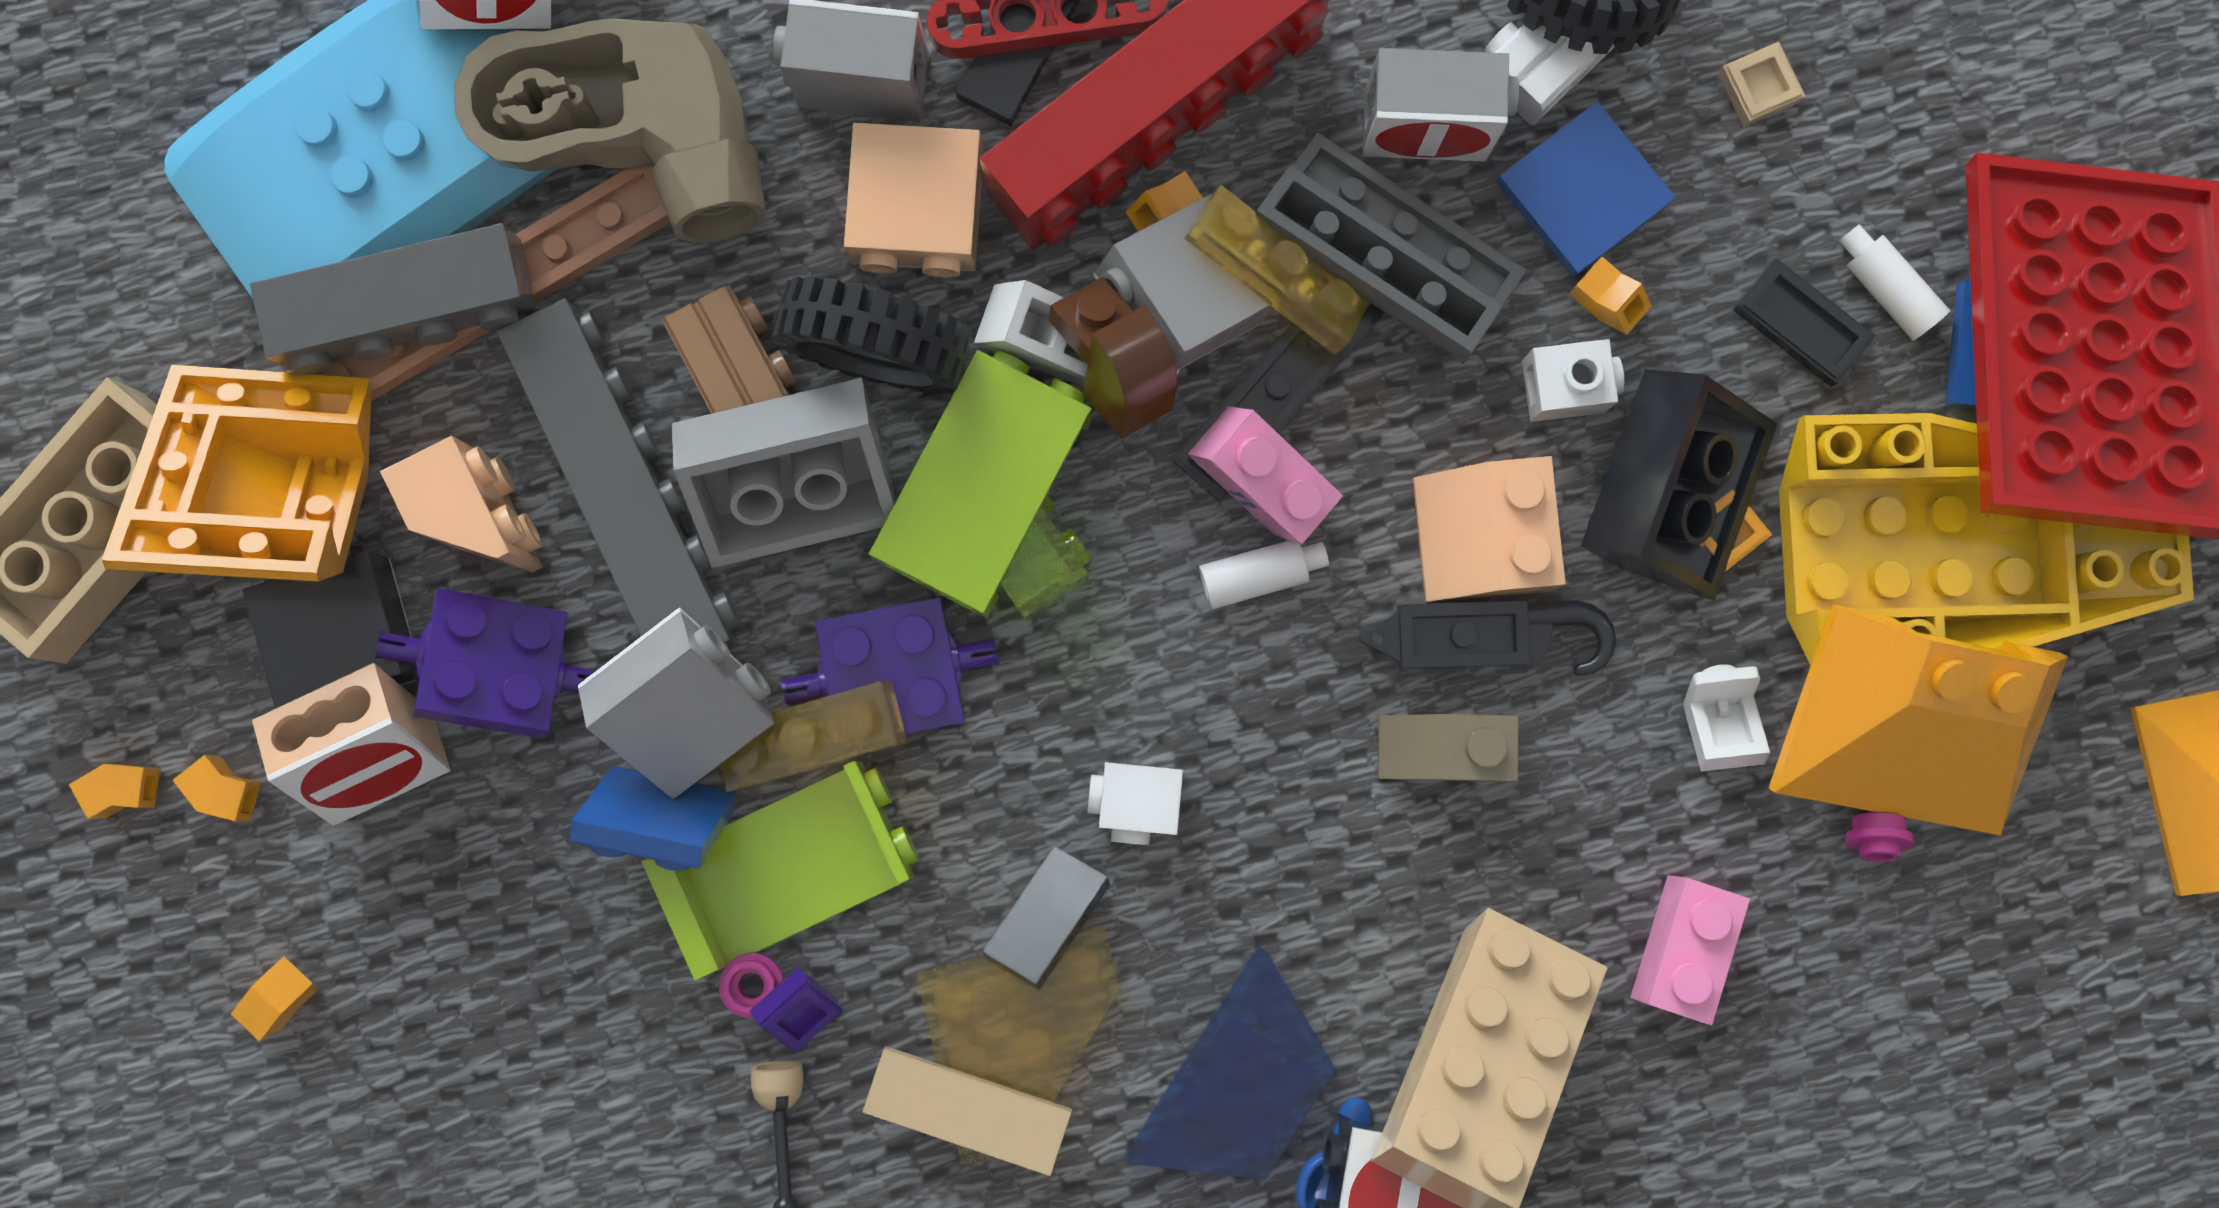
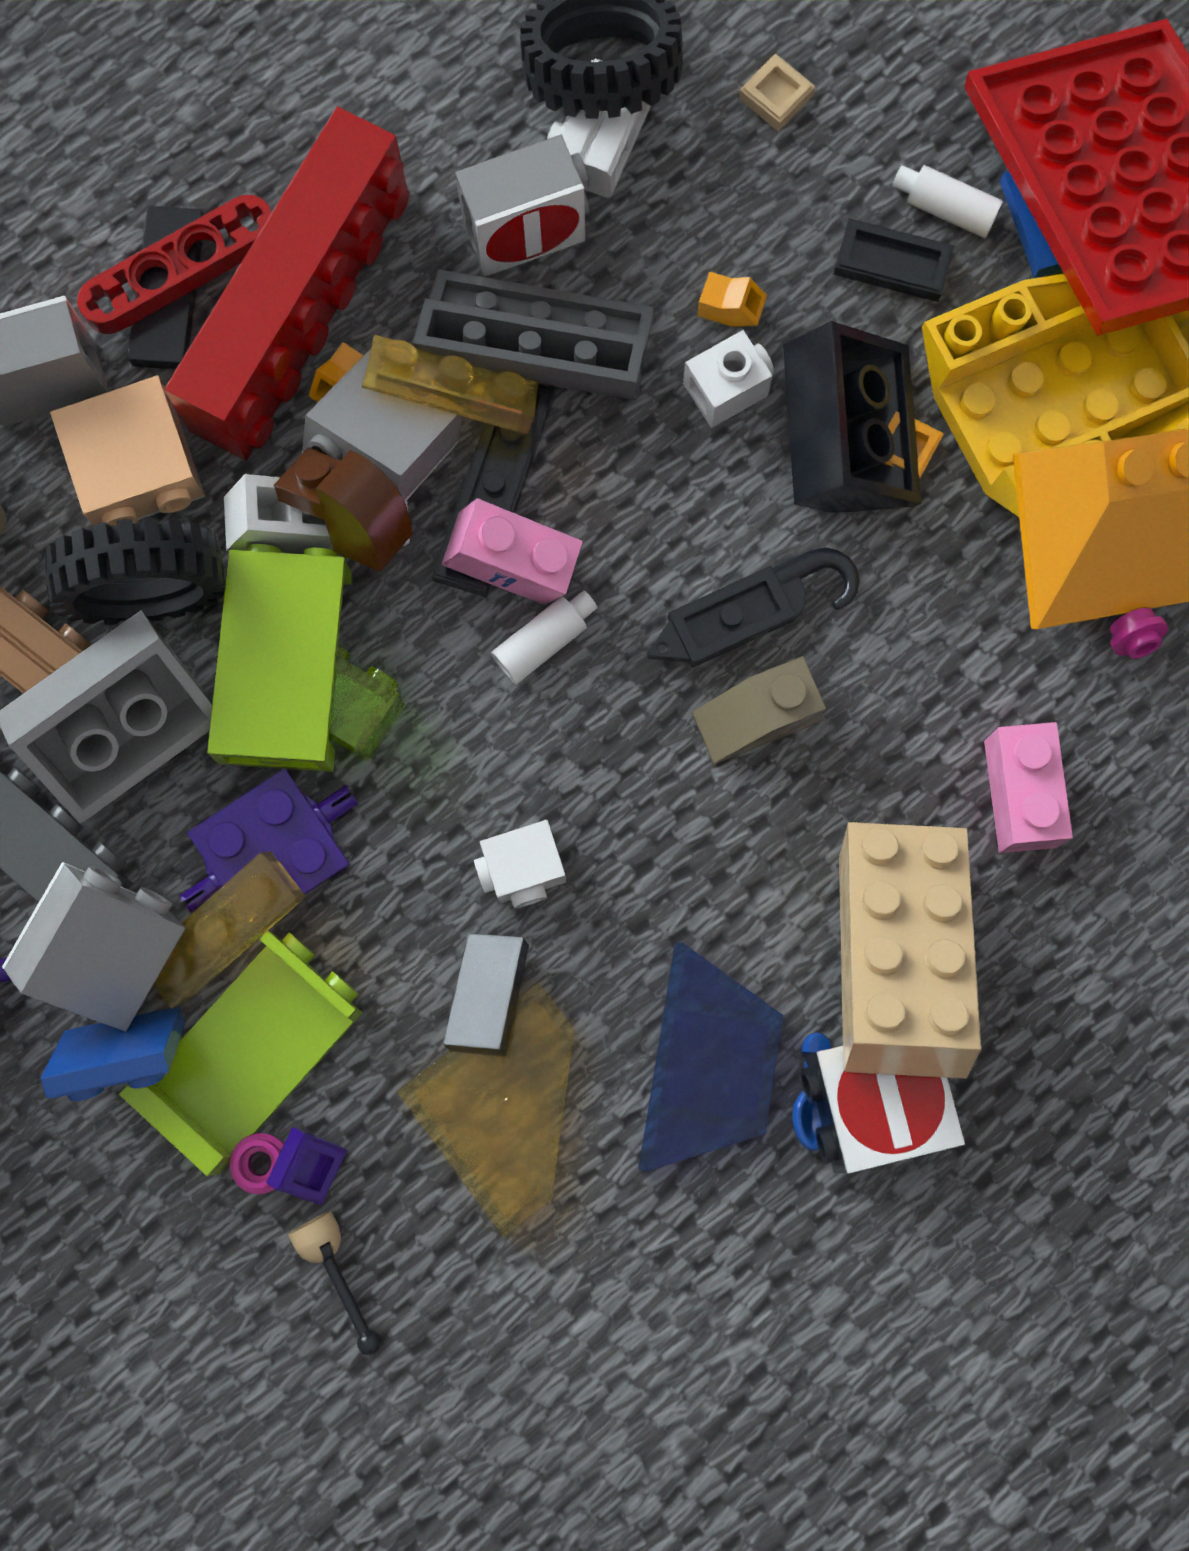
camera: 25 degrees left, 5 degrees down
(967, 1110) = (487, 1184): tan tile -> none
(1489, 530) = (715, 522): light nougat slope -> none
(1585, 189) = (673, 227): blue tile -> none
(1726, 718) = (972, 591): white bracket -> none

